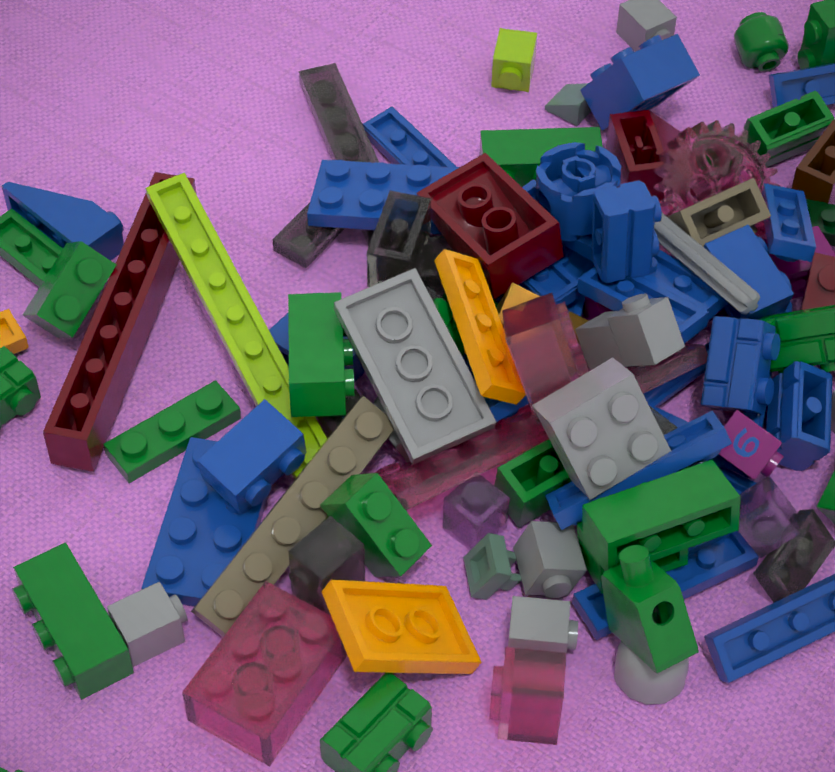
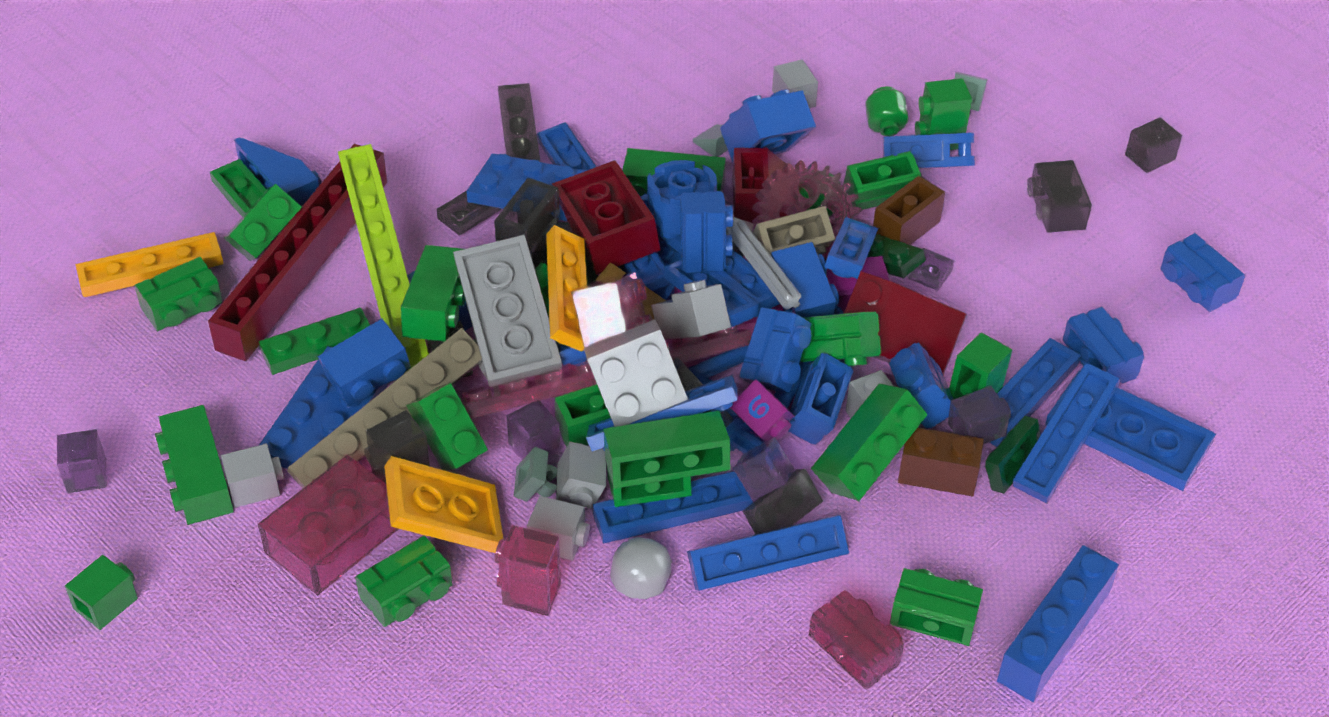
camera: 10 degrees right, 5 degrees down
(514, 59) = (676, 99): lime brick -> none
(647, 610) = (636, 516): green torso -> none

